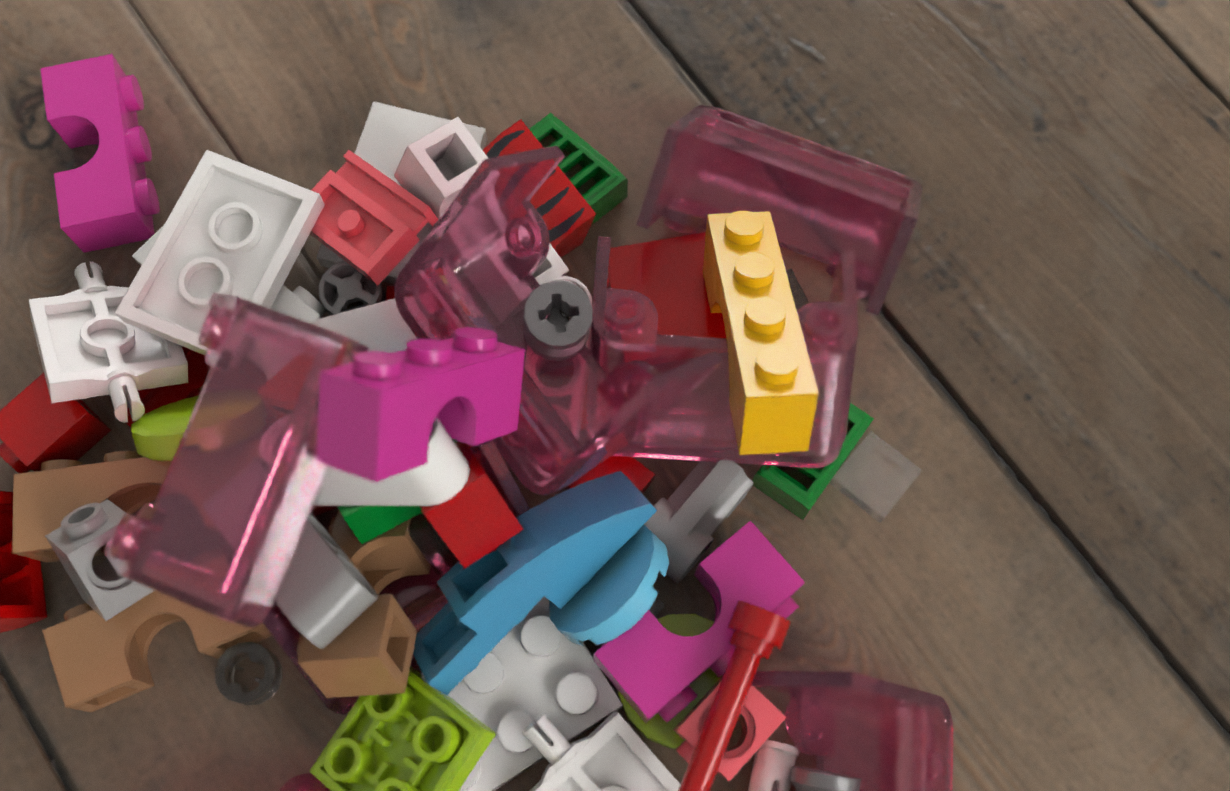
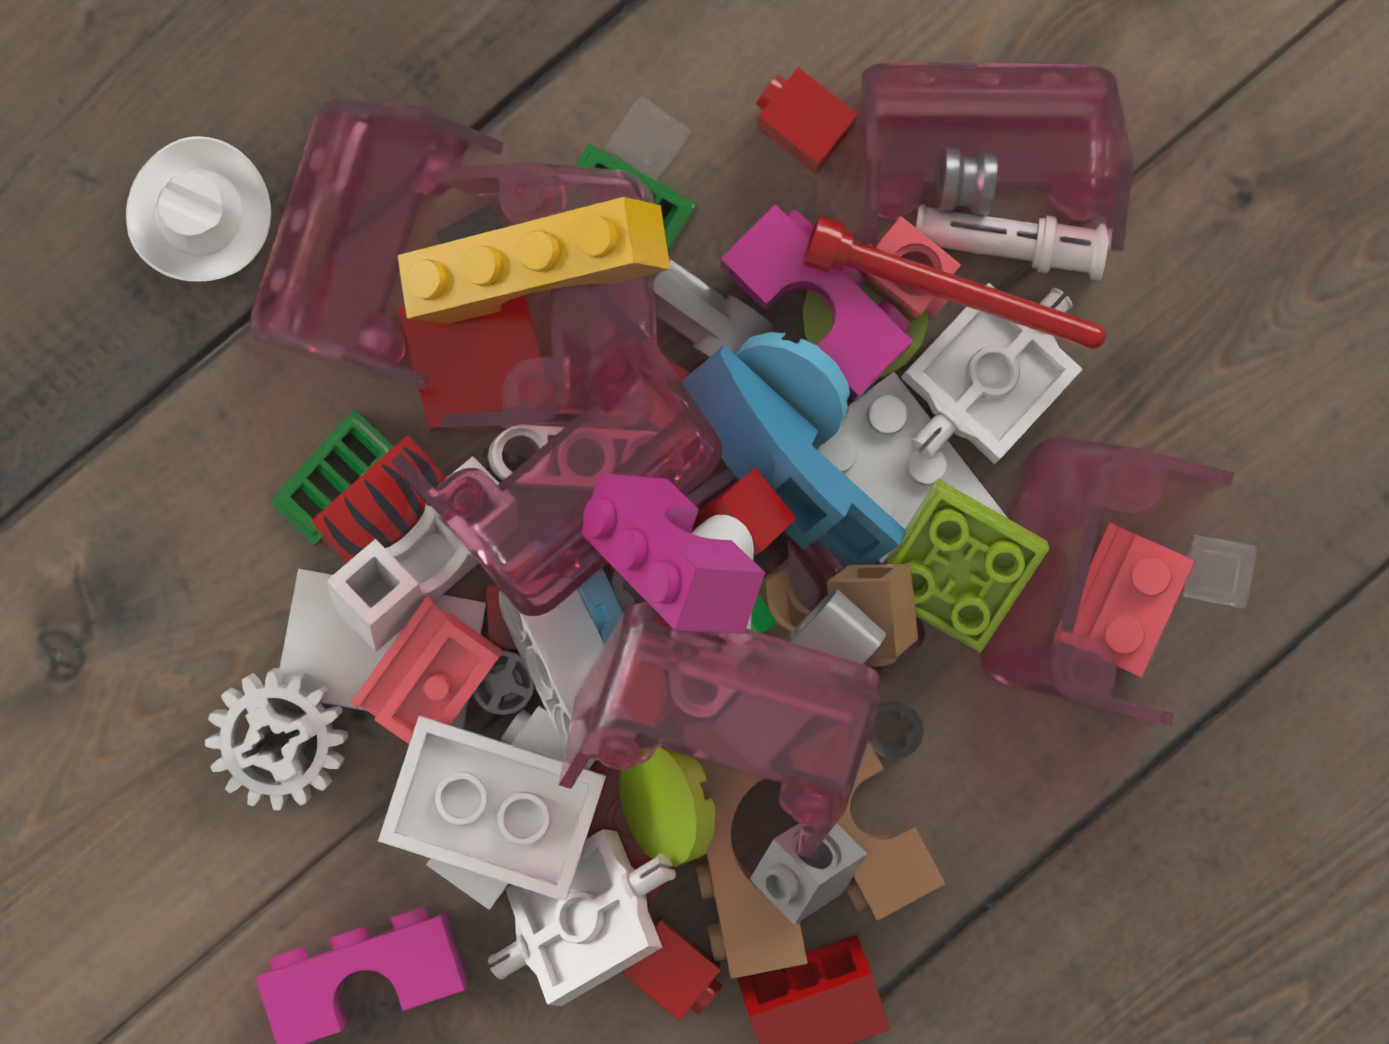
camera: 90 degrees left, 15 degrees up
(330, 96) = (284, 762): none -> white gear
(557, 336) = (554, 464): flat silver wheel -> none
(819, 73) = (198, 210): none -> white hat
(895, 632) = (804, 118): none -> red brick

